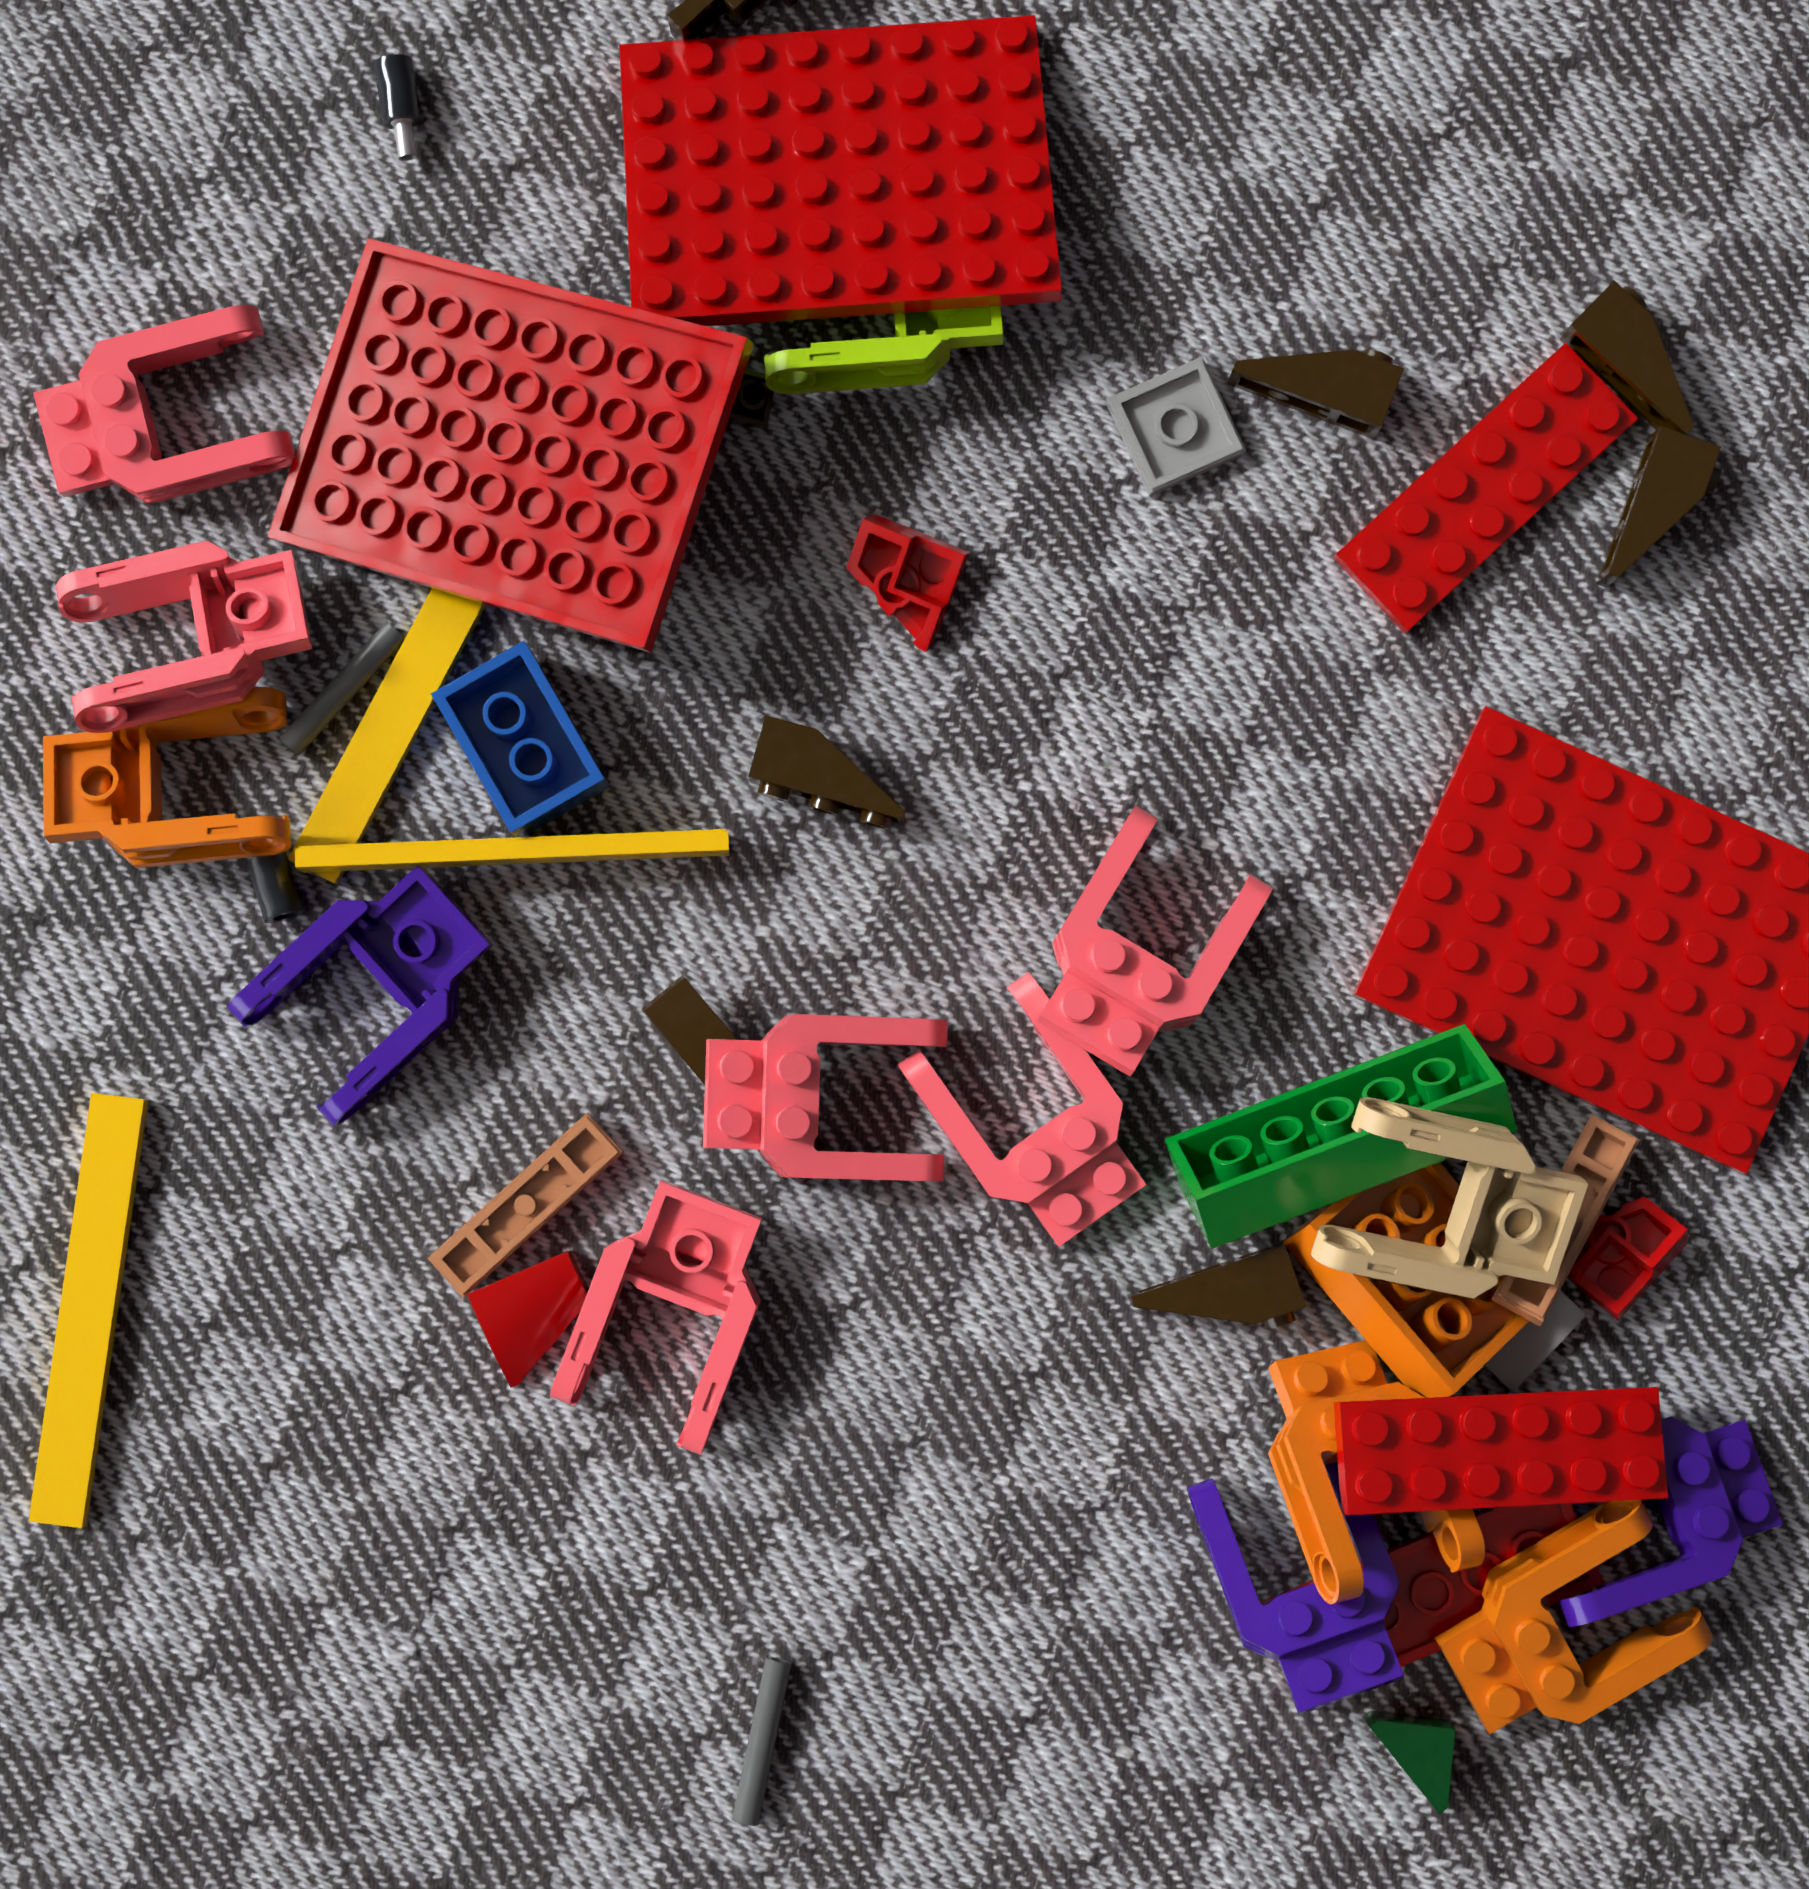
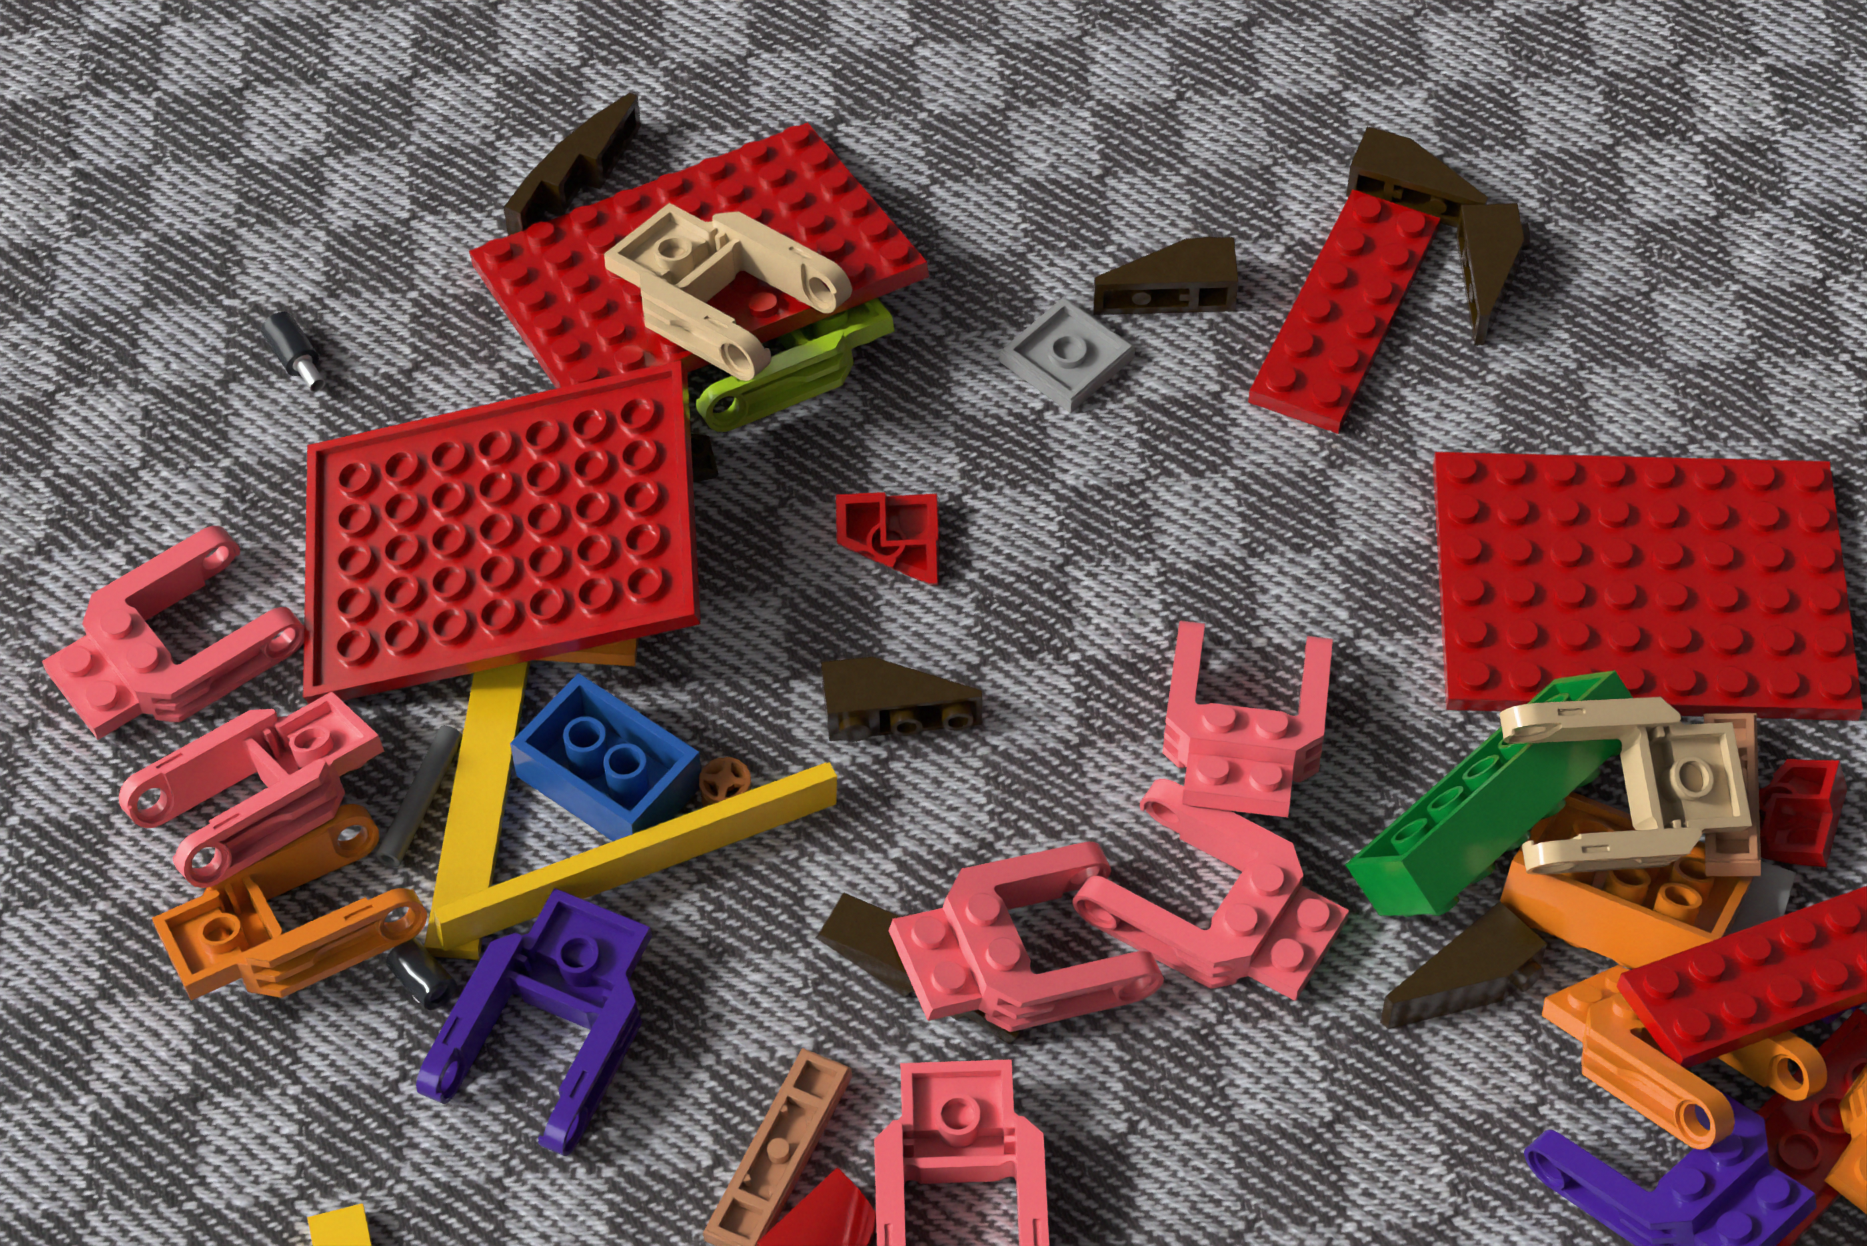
camera: 25 degrees left, 30 degrees down
(619, 800) = (721, 777): none -> dark orange wheel
(806, 198) = (688, 261): none -> tan plate

